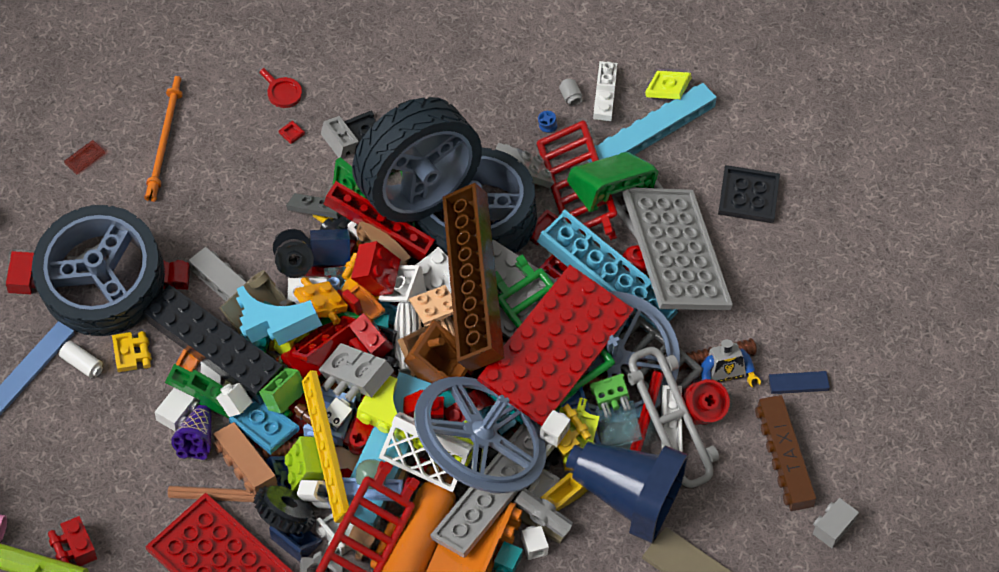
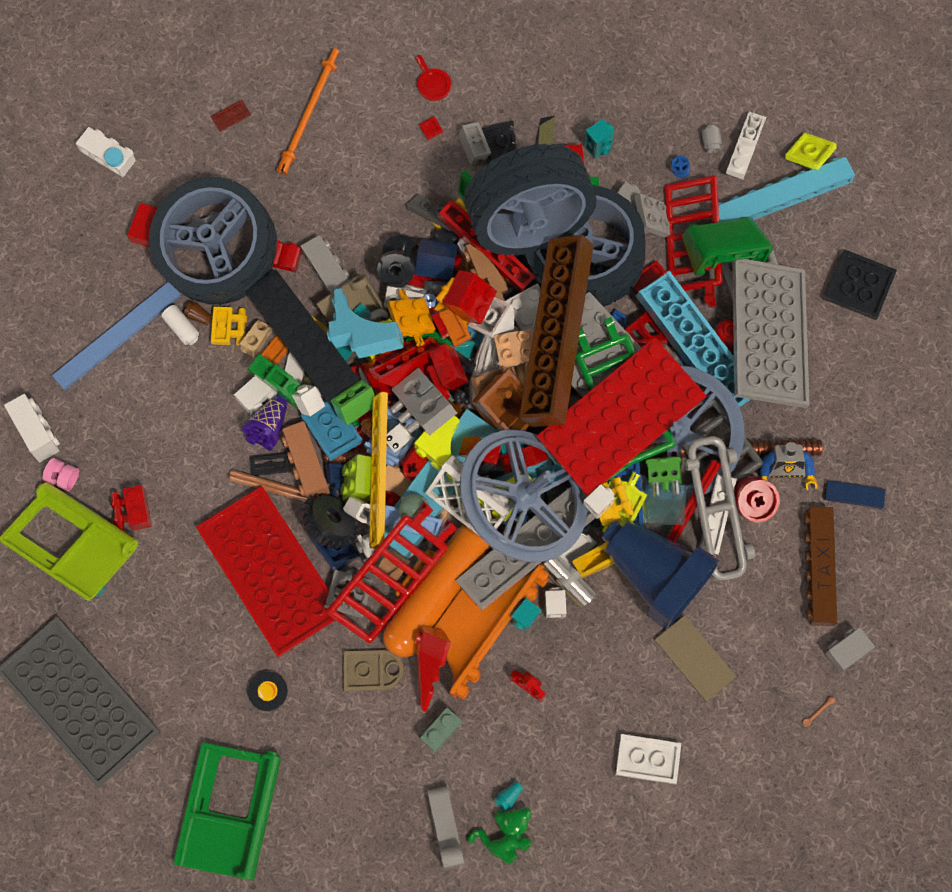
camera: 20 degrees right, 15 degrees up
(96, 345) = (197, 313): none -> reddish brown cone
(162, 357) = (256, 338): none -> tan leg
(208, 480) = (272, 464): none -> black tile
(465, 103) = (599, 139): none -> teal brick

